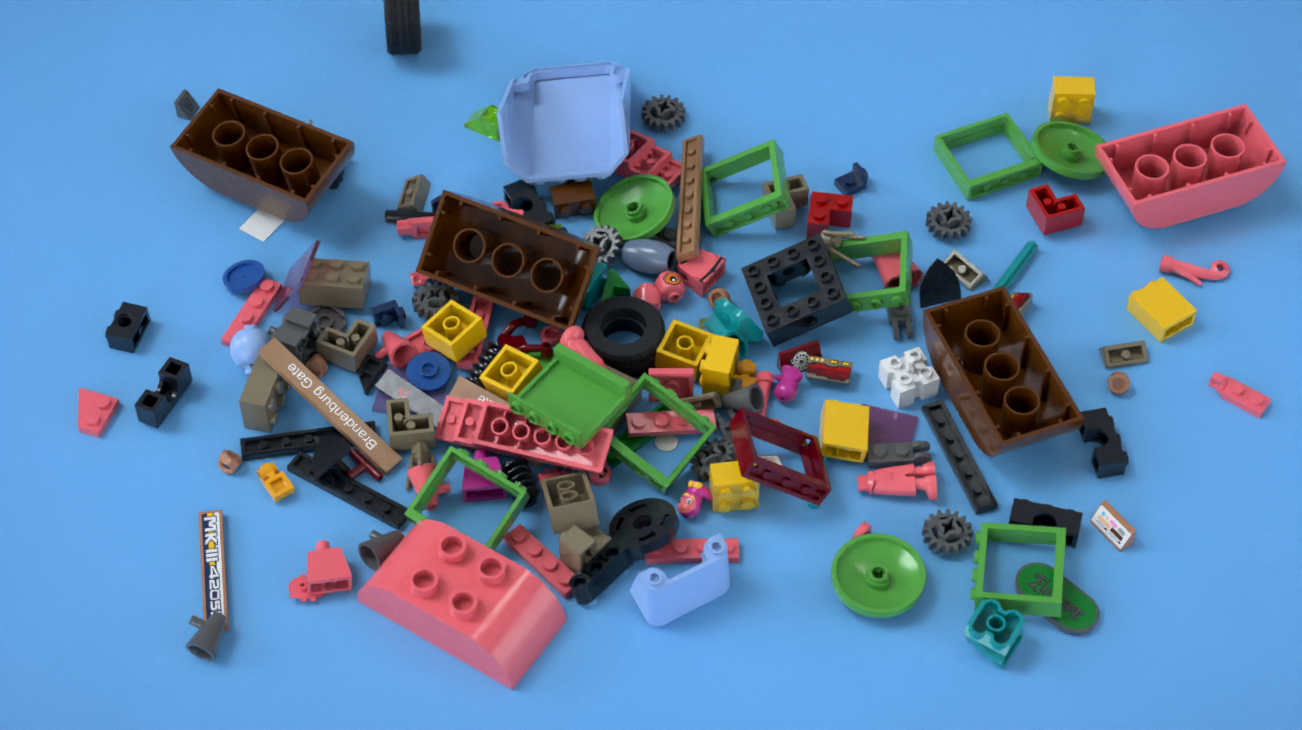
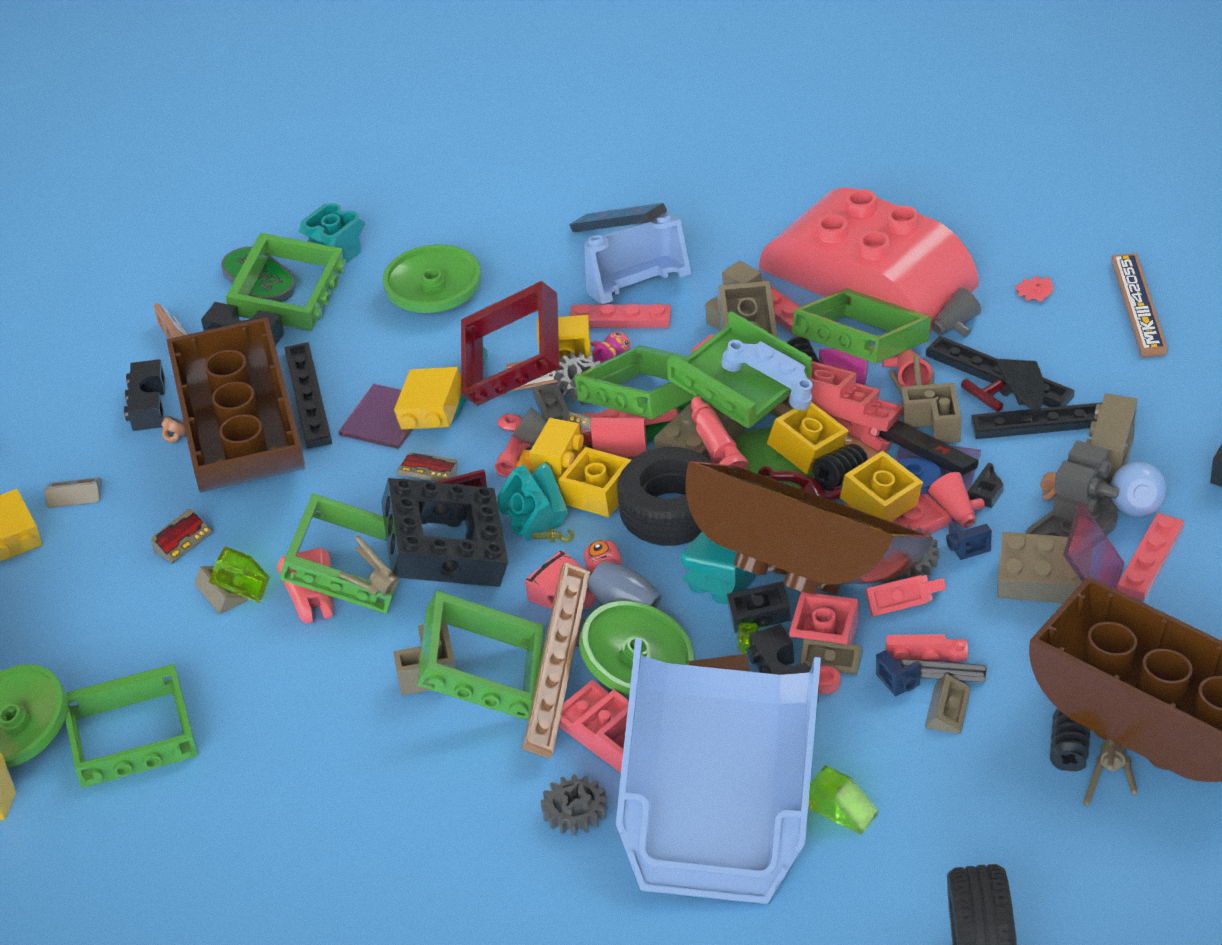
camera: 170 degrees left, 10 degrees down
(207, 638) = (1132, 234): dark grey piece -> none
(230, 459) = (1143, 391): nougat tile -> none
(244, 276) = (1170, 592): blue piece -> none
(274, 482) = (1083, 370): light orange plate -> none
(327, 570) = (1011, 292): coral torso -> none
(330, 406) = (1037, 414): medium nougat tile -> none
(348, 348) = (1016, 492): dark tan brick -> none
(544, 393) = (772, 364): none -> light blue plate
(608, 239) = (687, 609): dark grey gear -> none
(615, 286) = (669, 560): green slope -> none
(627, 544) = (680, 303): black beam -> none
(649, 293) = (635, 549): coral head -> none
(705, 621) = (618, 217): none -> black tile
(718, 293) = (542, 550): nougat tile -> none
(788, 383) = (480, 455): dark pink animal -> none
(827, 211) = (372, 651): red brick -> none
(853, 181) = (327, 703): dark blue bracket -> none
(863, 529) = (437, 321): coral tile -> none
(898, 454) = (370, 389): dark grey hinge -> none
(900, 316) = (322, 535): dark grey hinge -> none
(900, 480) = (377, 363): coral piece -> none
(908, 377) = (336, 456): white brick -> none
(939, 285) = (262, 547): black shield -> none
(947, 532) = (349, 319): dark grey gear -> none
(948, 221) = (218, 637): dark grey gear -> none
(958, 260) = (239, 574): none -> clear neon green slope
(1017, 265) = (159, 583): teal axle -> none
(1054, 213) = (75, 633): red brick -> none
(1118, 382) = (97, 451): nougat tile -> none

